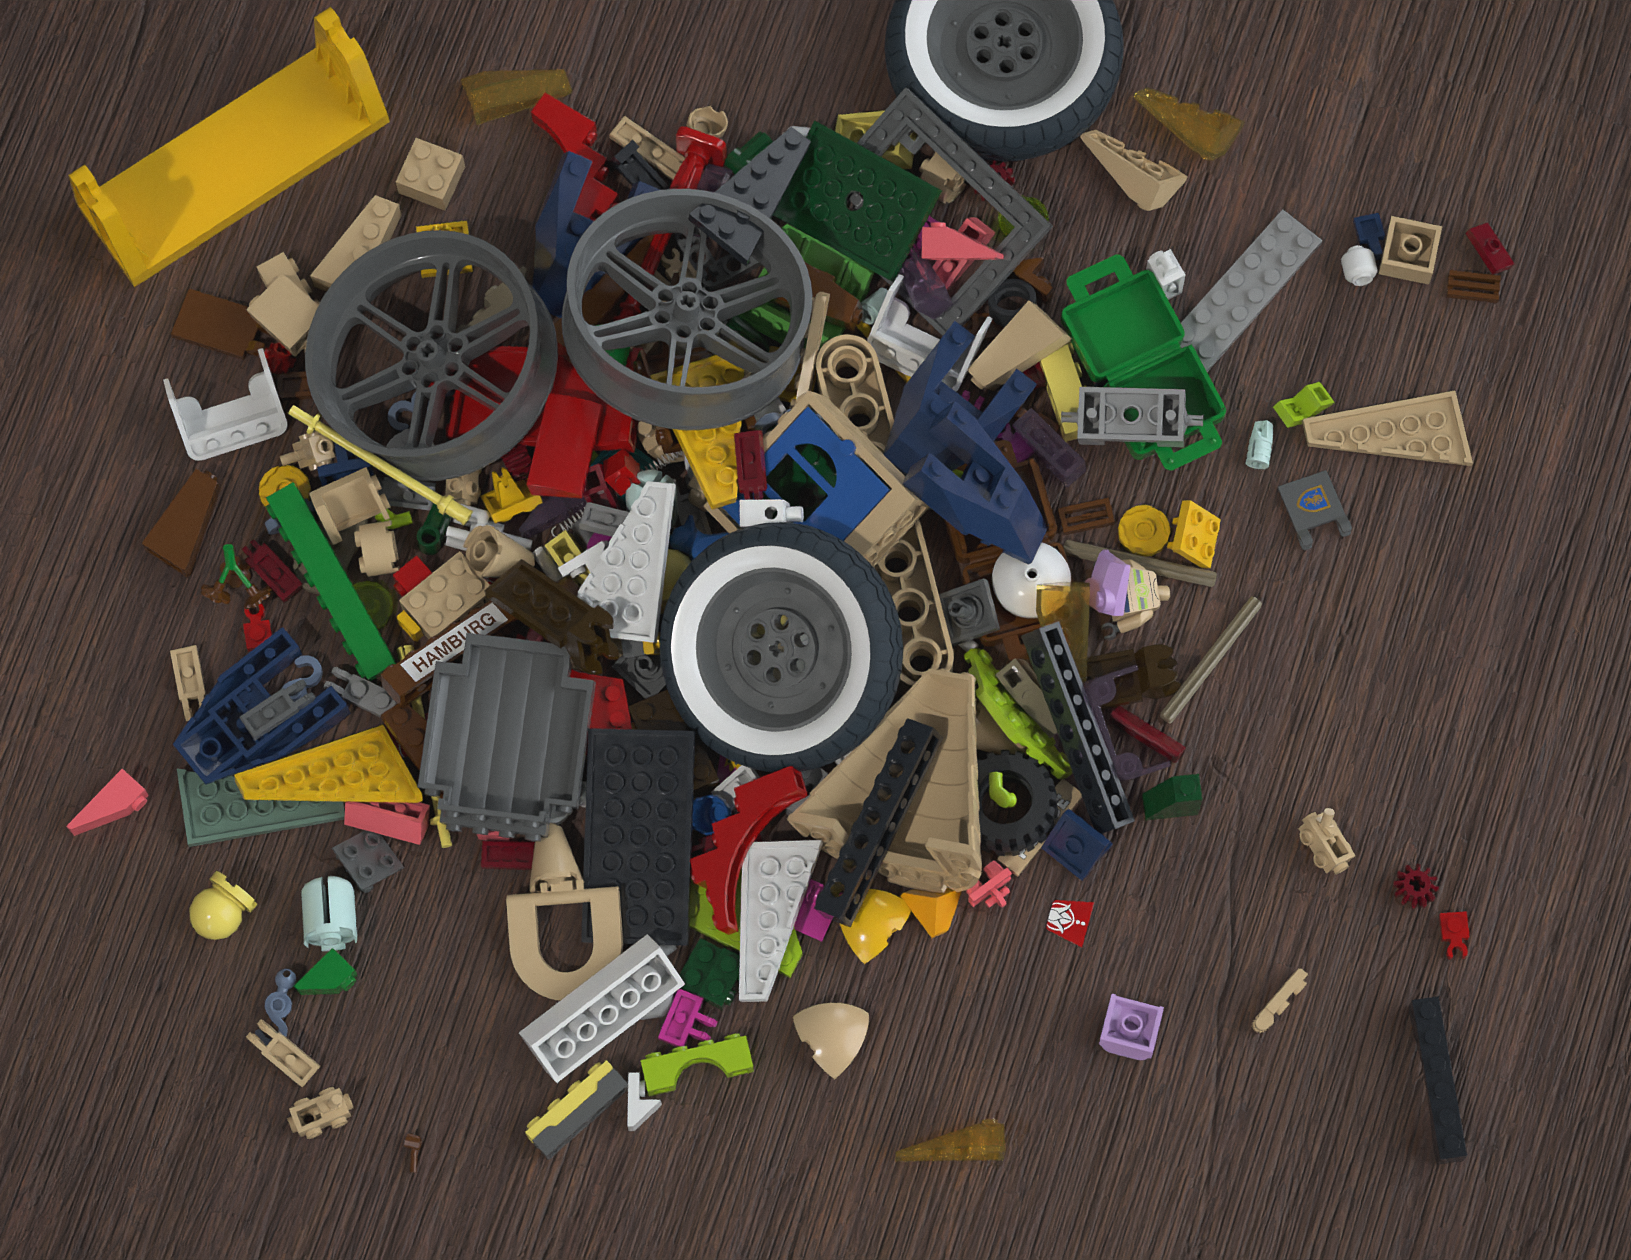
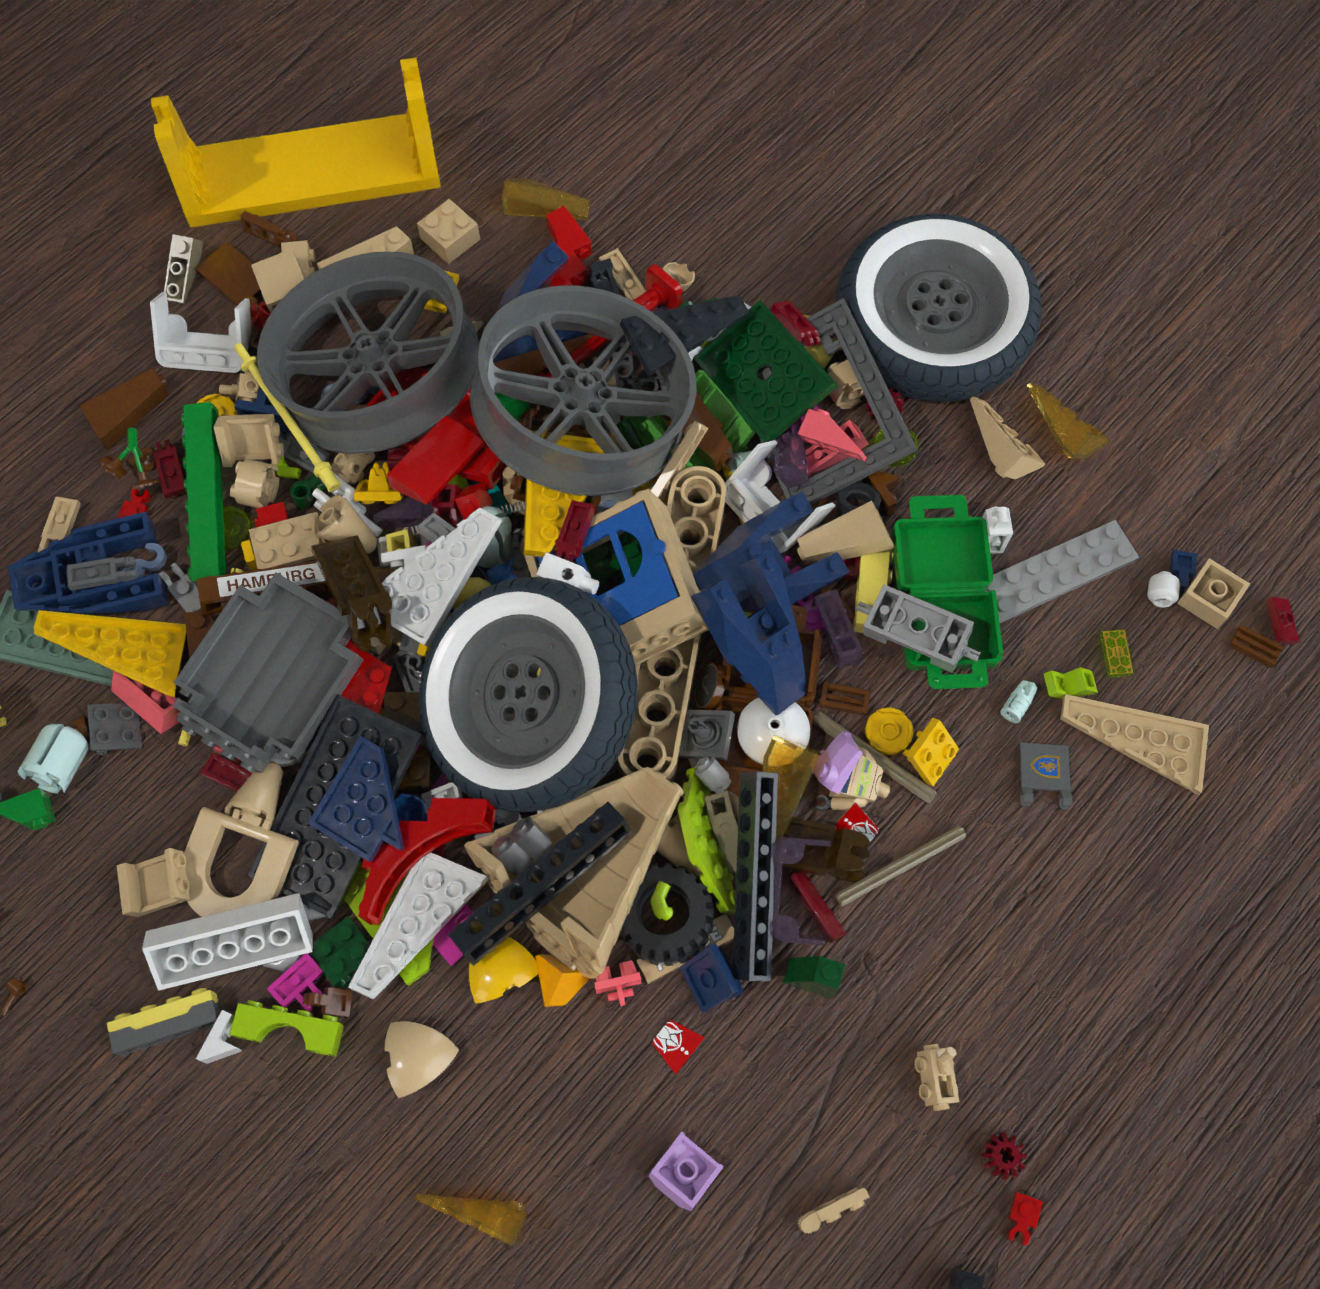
camera: 20 degrees right, 5 degrees down
(157, 341) = (183, 258): none -> dark tan slope
(231, 257) = (265, 230): none -> reddish brown hinge
(333, 869) = (81, 725): none -> reddish brown axle
(497, 988) = (153, 883): none -> tan panel
(666, 823) = (360, 803): none -> dark blue wing
(727, 1020) = (333, 1001): none -> reddish brown plate
(843, 796) = (521, 846): none -> flat silver brick
(866, 135) = (795, 323): none -> dark red hinge
(947, 562) = (709, 686): none -> tile
(993, 649) = (712, 774): none -> light grey brick
(1151, 634) = (857, 820): none -> red sticker
(1337, 353) = (1116, 653): none -> clear neon green tile

